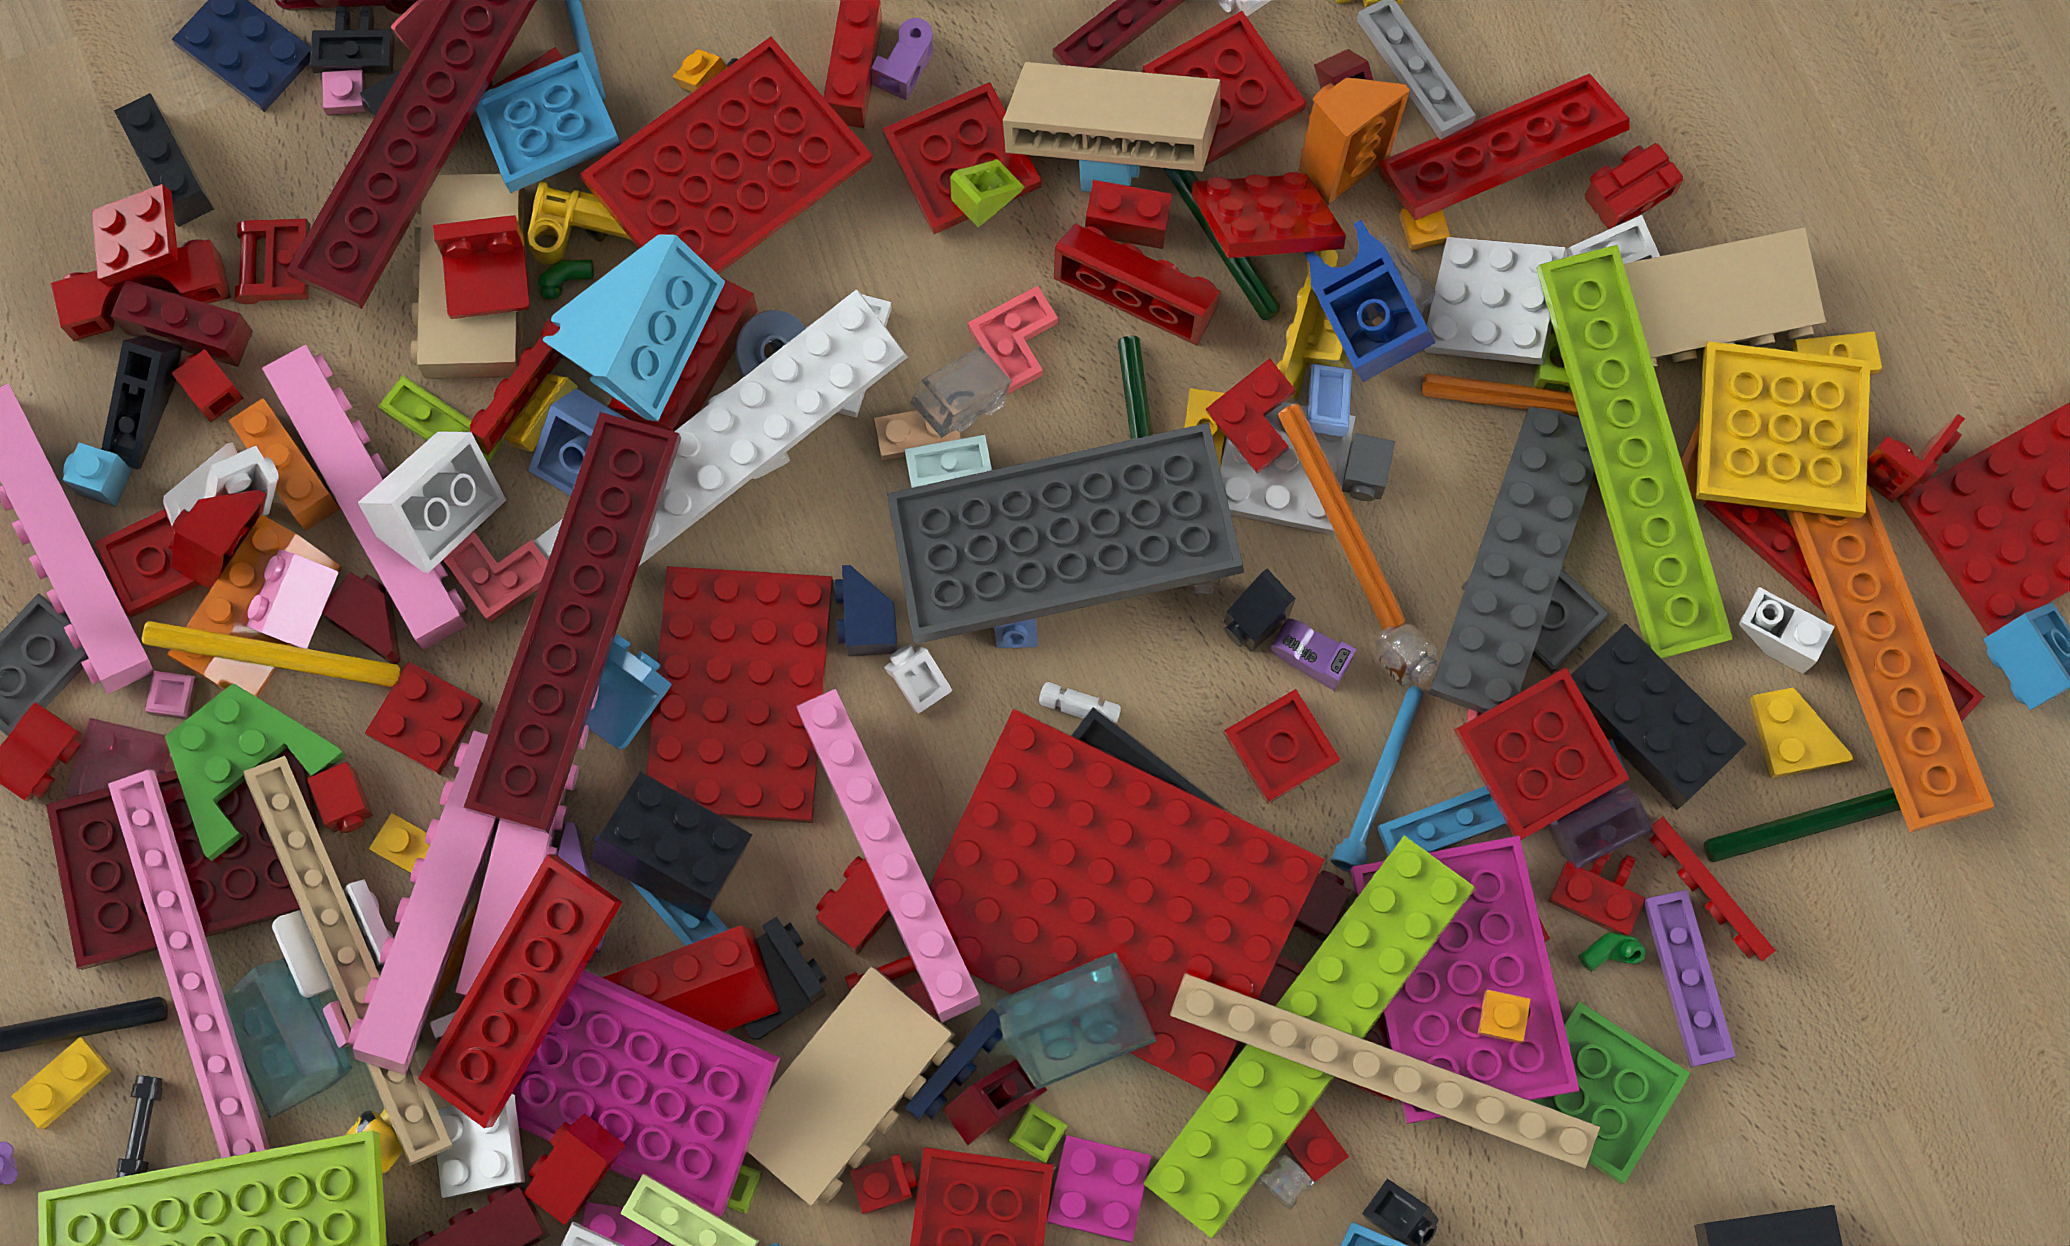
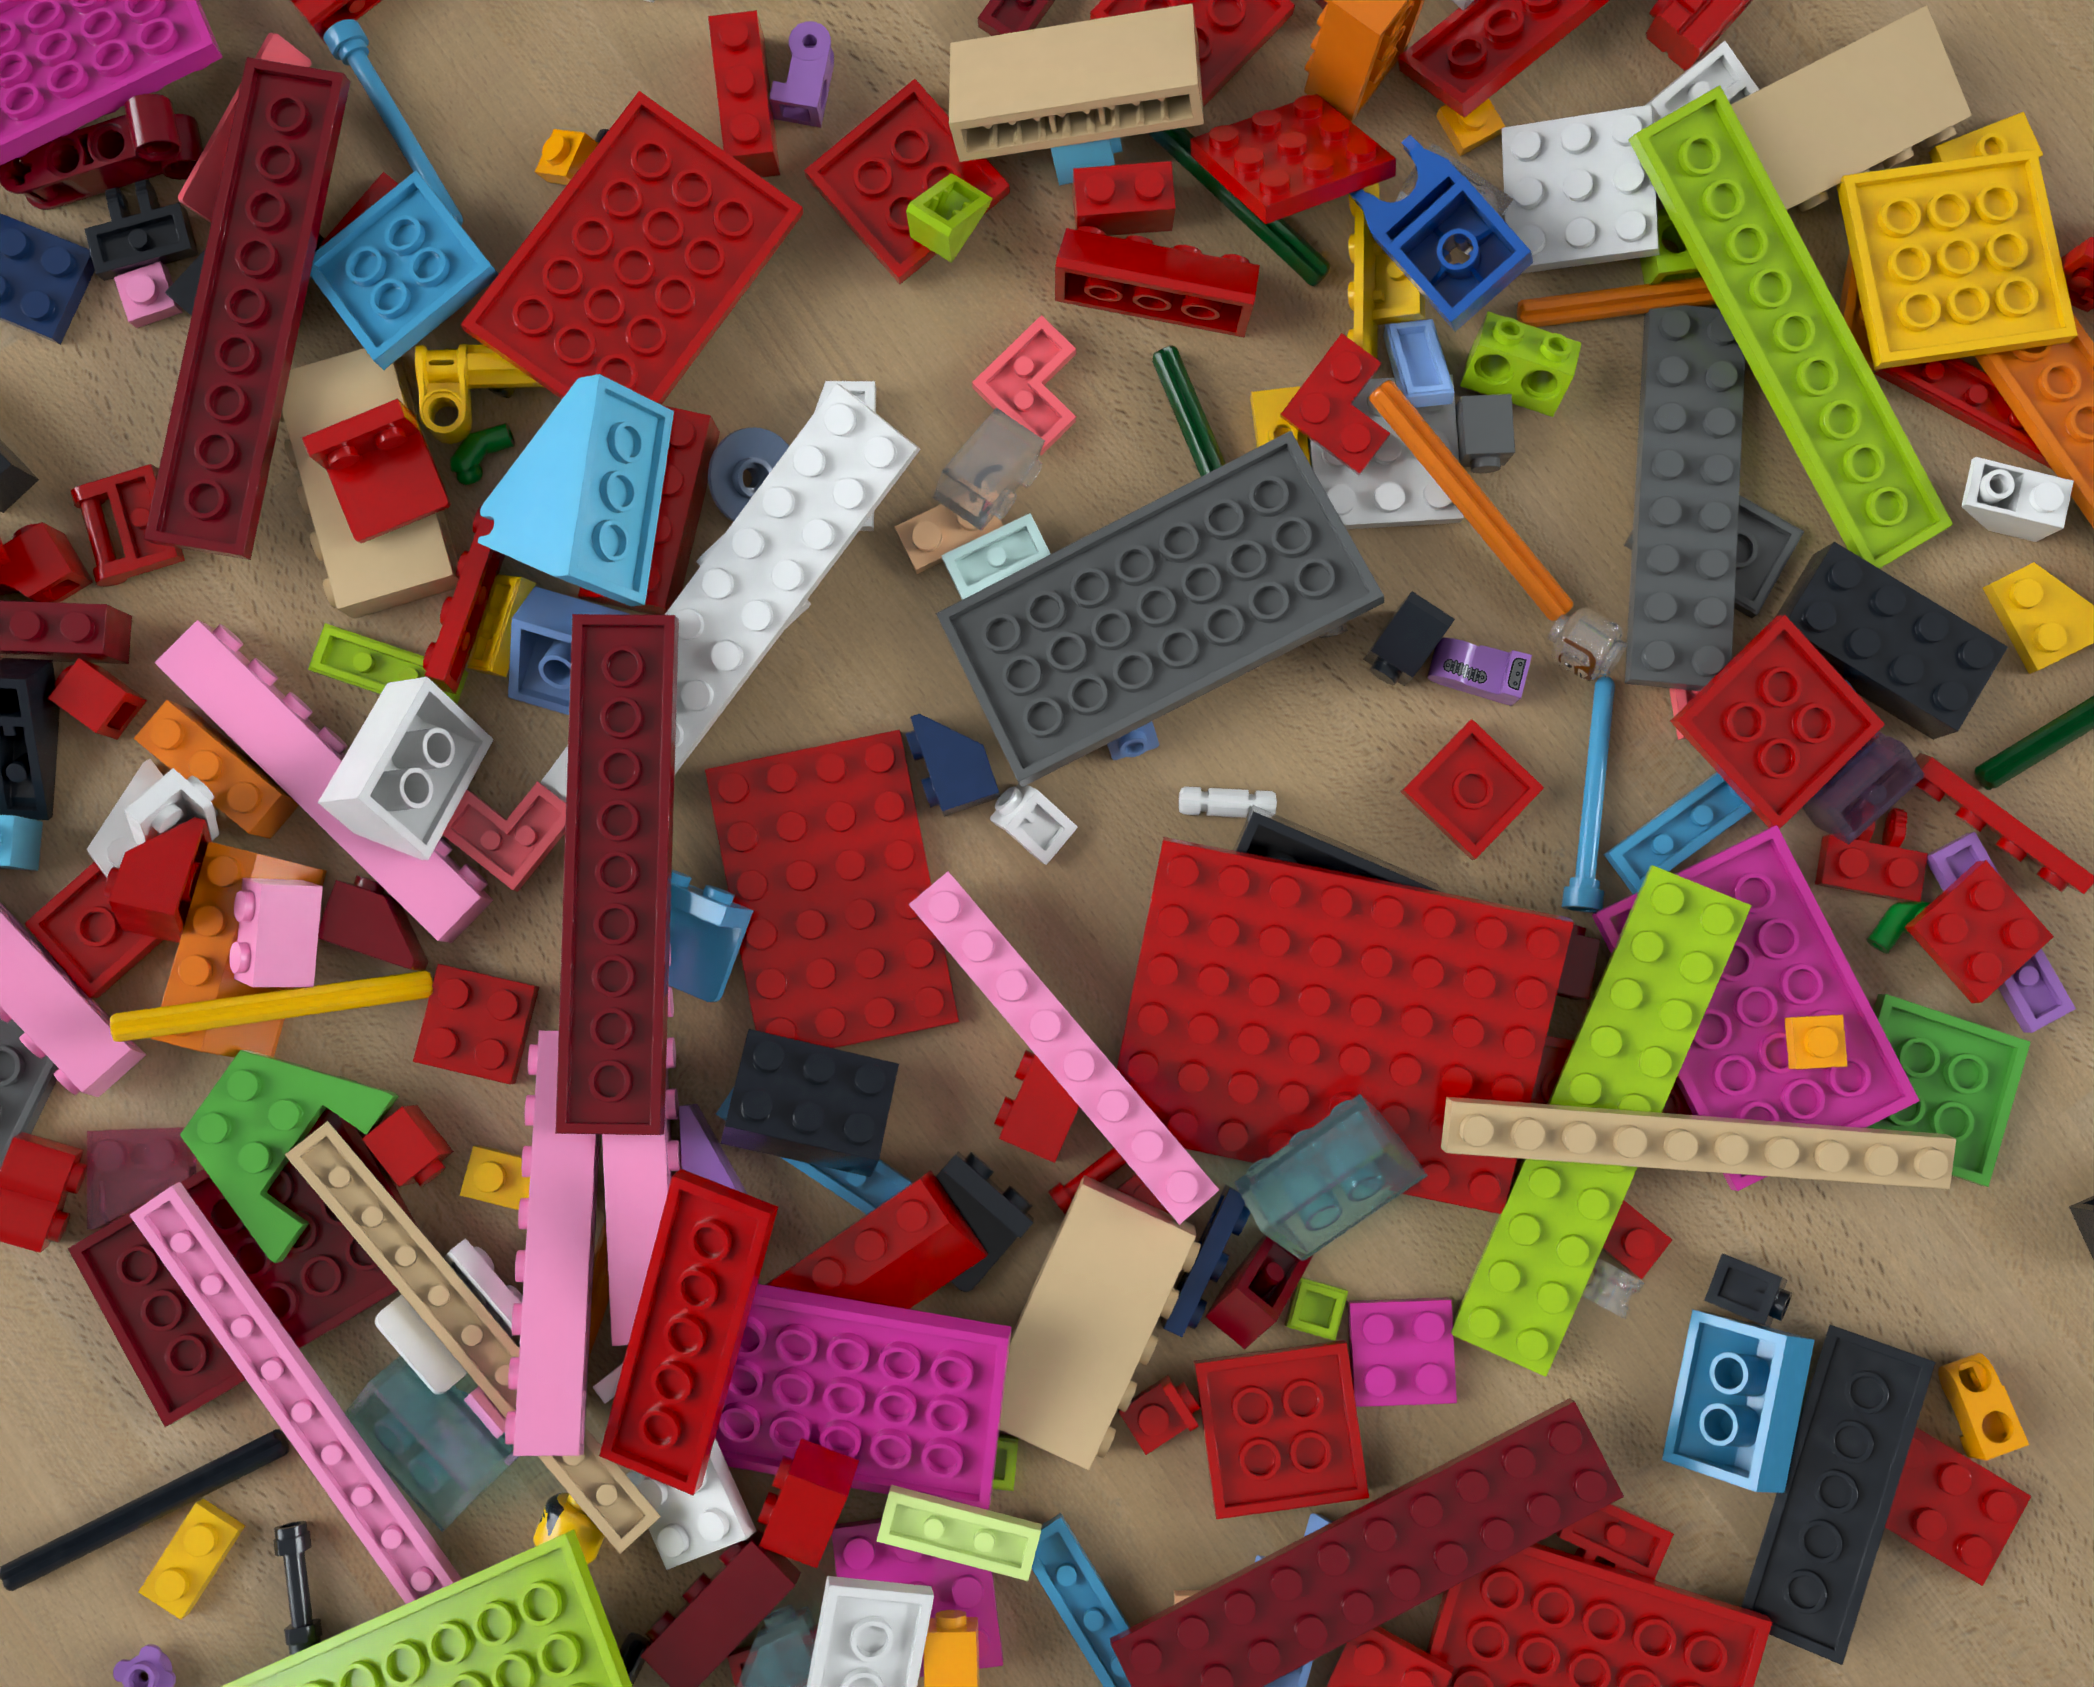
camera: 15 degrees left, 10 degrees up
(171, 695) = (174, 1076): bright pink tile -> none
(1411, 419) = (1521, 362): none -> lime brick
(1667, 969) = (1979, 932): none -> red plate

